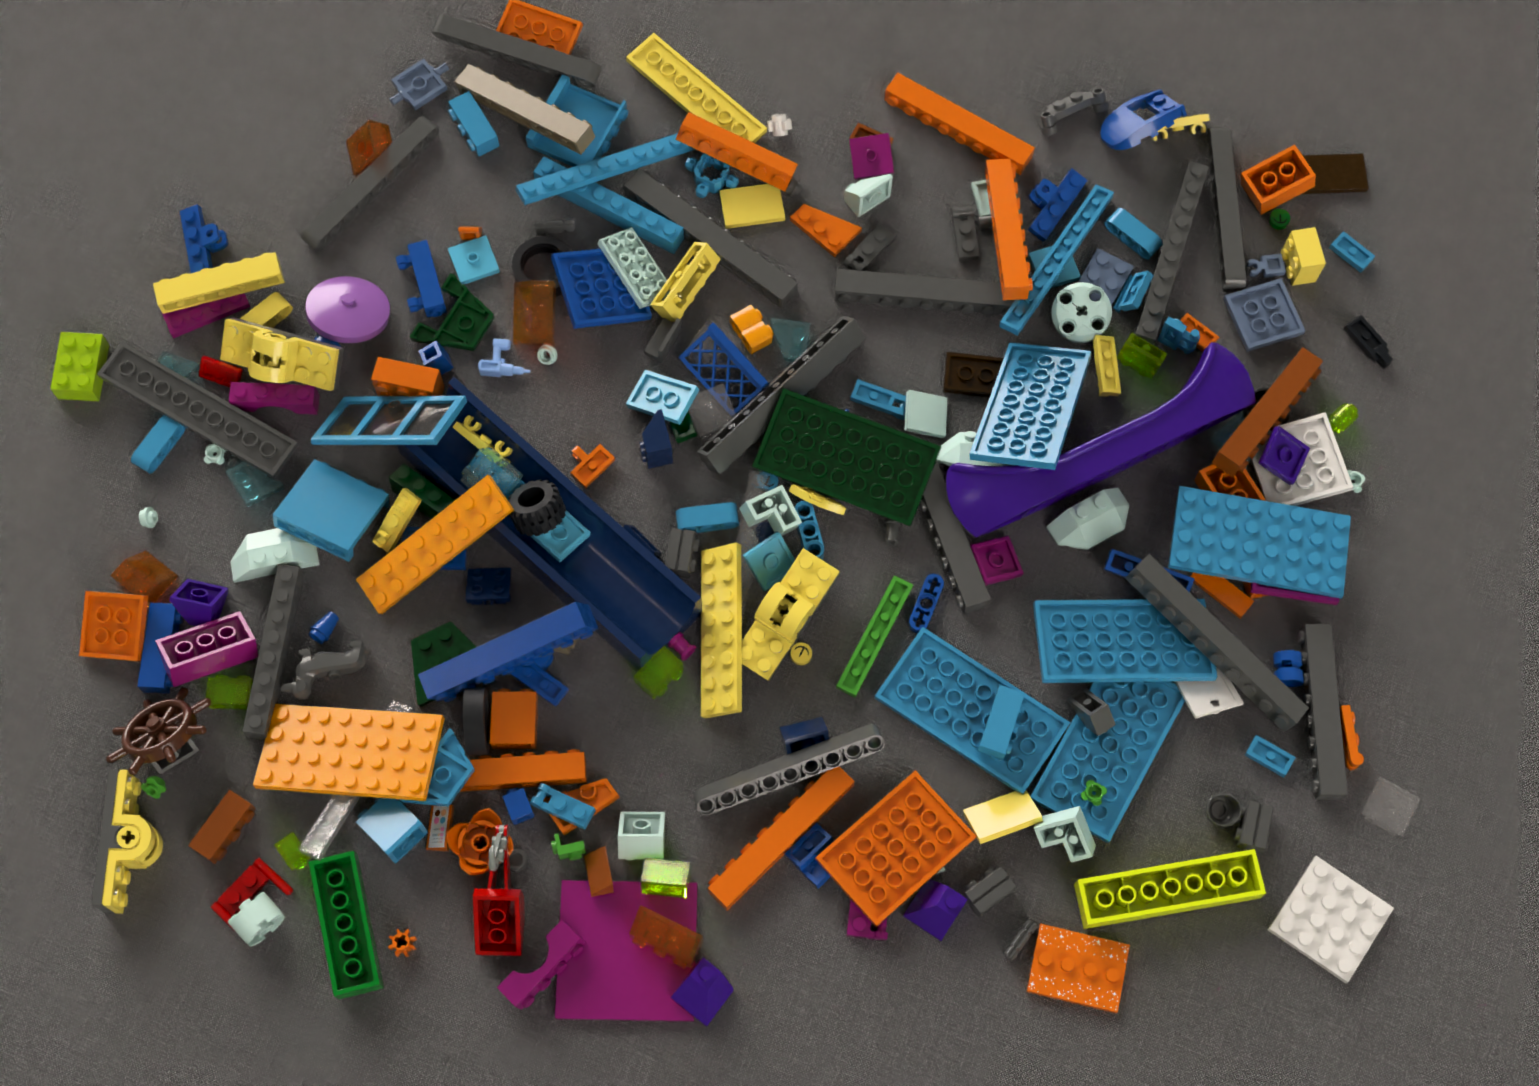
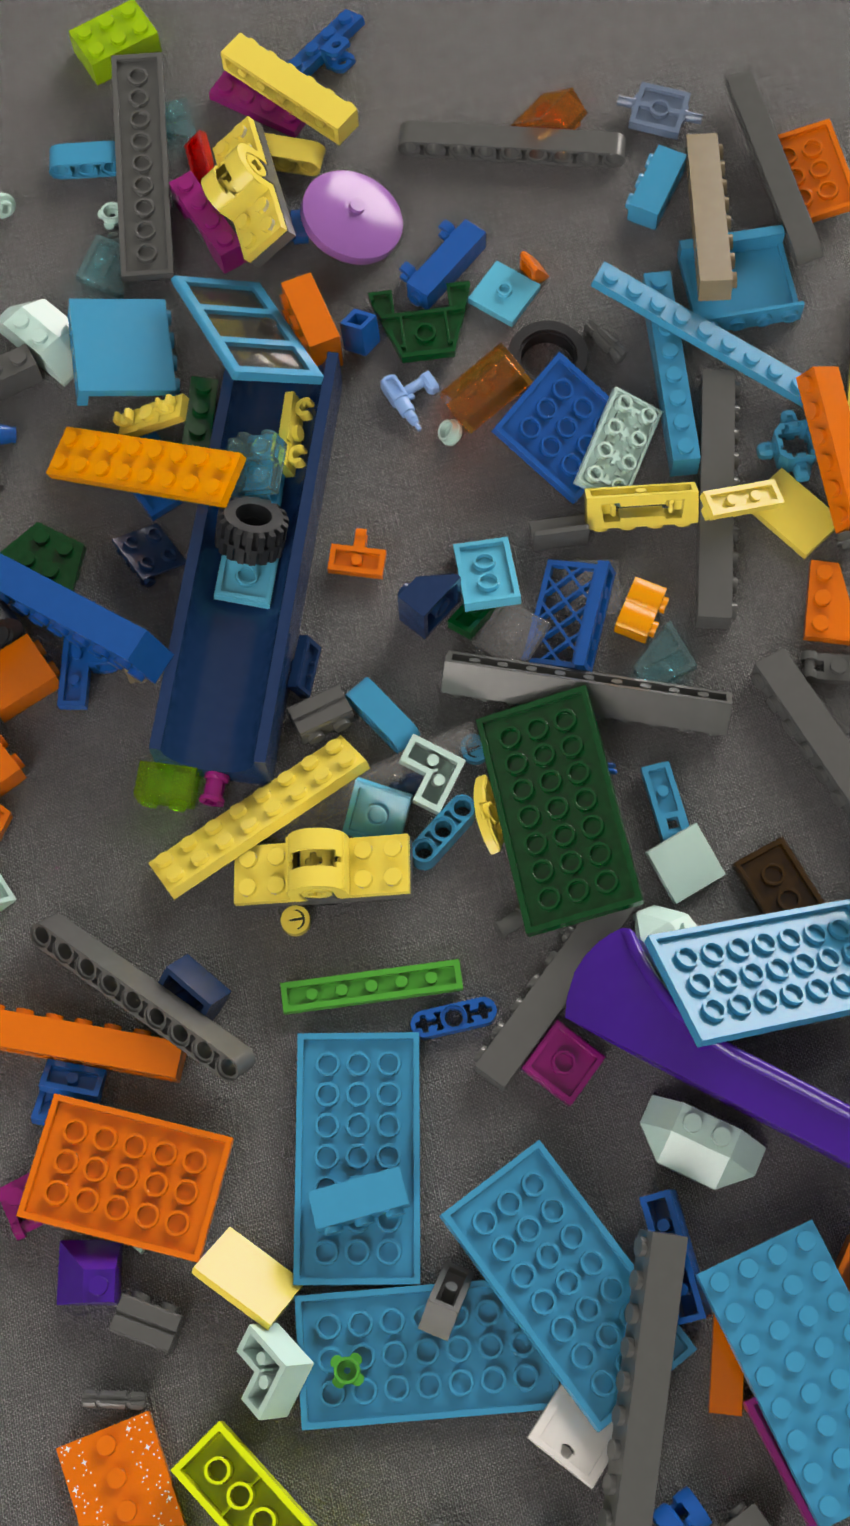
camera: 60 degrees right, 0 degrees up
(729, 225) = (741, 500): none -> light yellow plate

